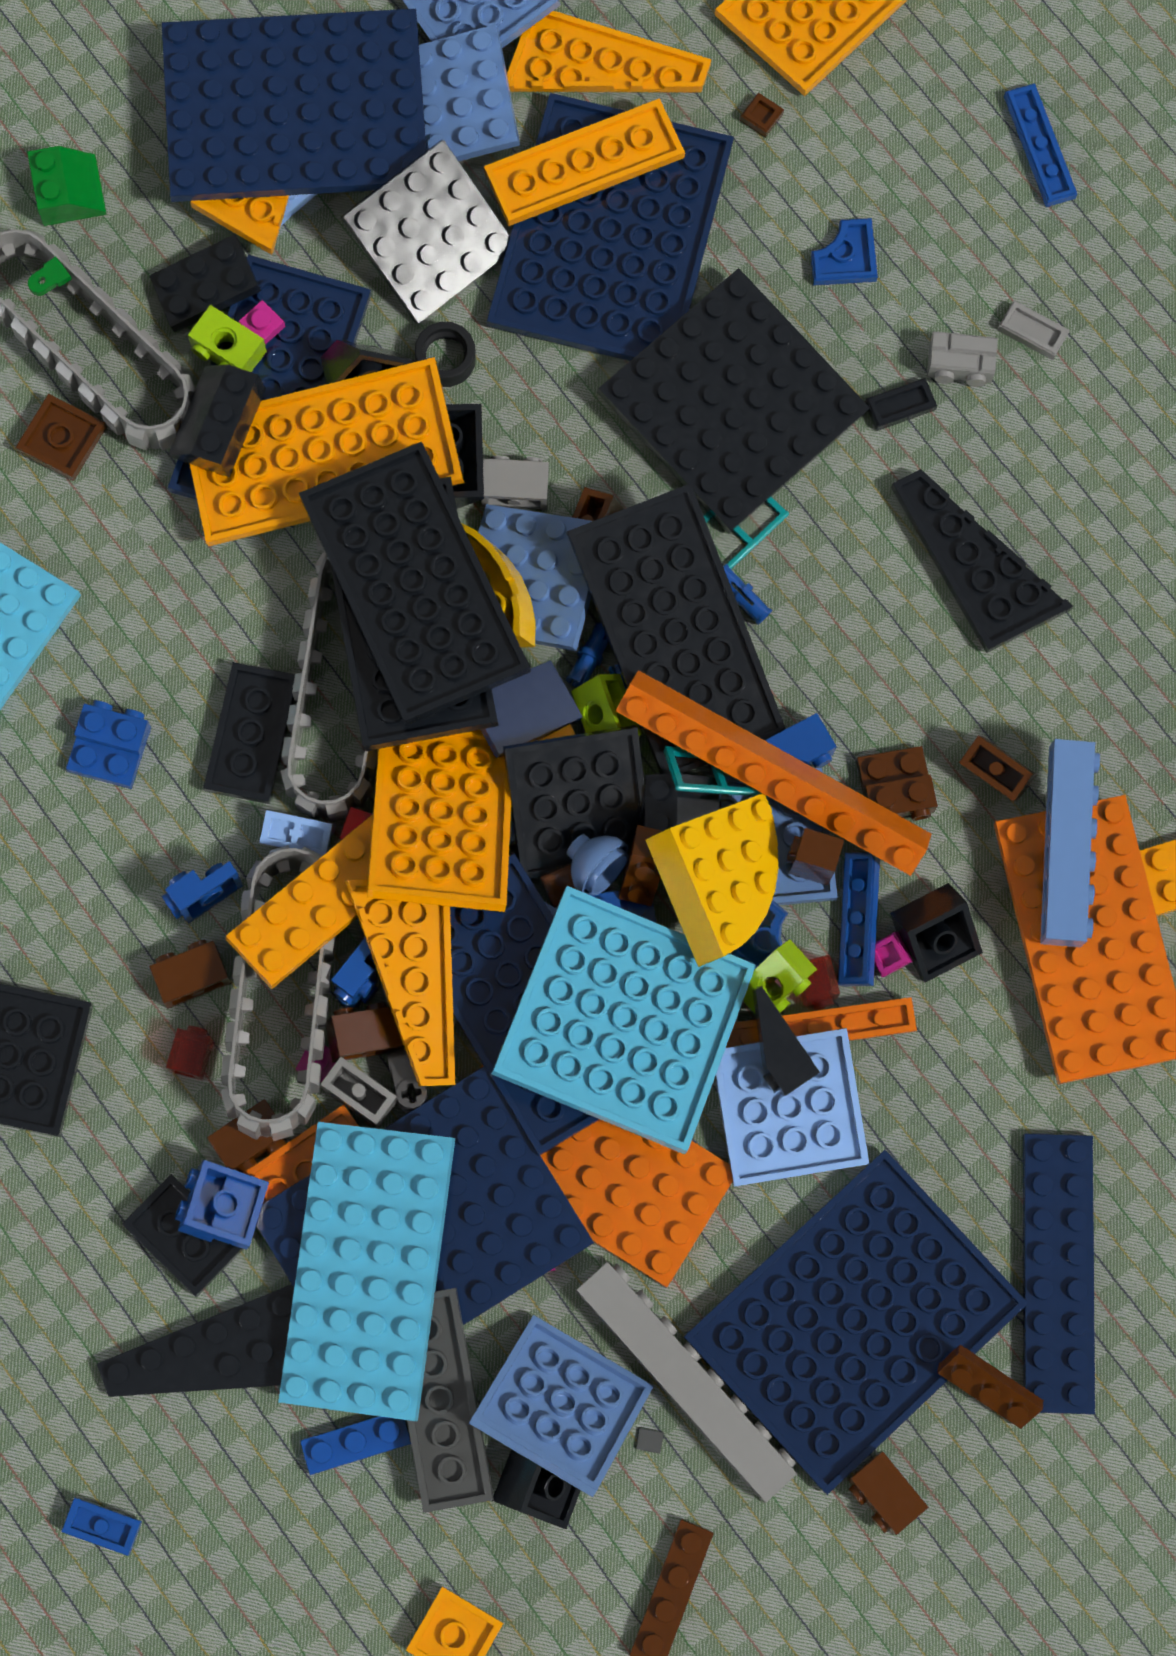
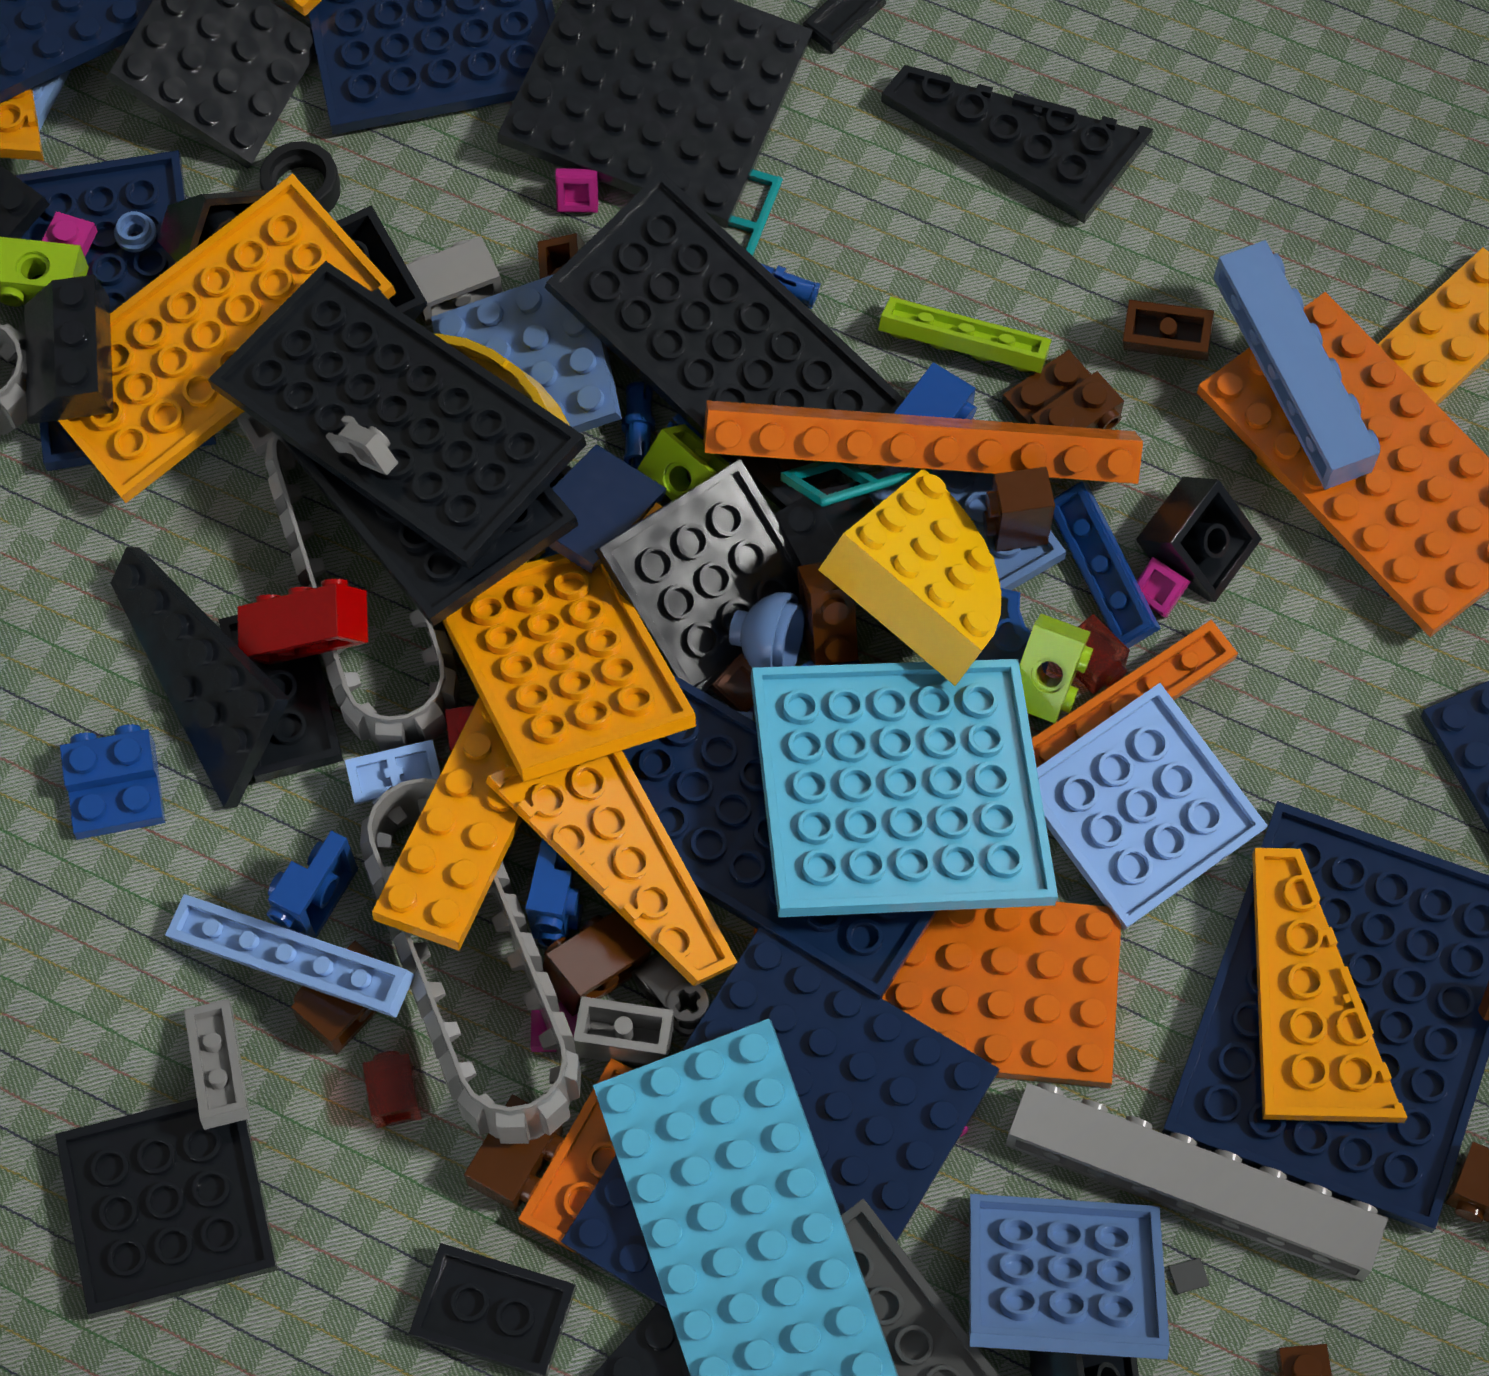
camera: 20 degrees left, 10 degrees down
(83, 980) = (216, 1064): none -> light grey plate
(164, 931) = (290, 955): none -> light blue plate
(204, 709) = (211, 683): none -> black wing
(221, 1204) = (523, 1244): blue plate -> none
(281, 700) = (303, 622): none -> red brick
(309, 333) = (134, 222): none -> medium blue plate
(377, 603) = (366, 445): none -> light grey plate
(636, 455) = (576, 190): none -> dark pink tile
(780, 1050) = (1099, 737): black slope -> none
(821, 1316) = (1312, 1023): none -> light orange wing
(853, 699) = (964, 334): none -> lime plate

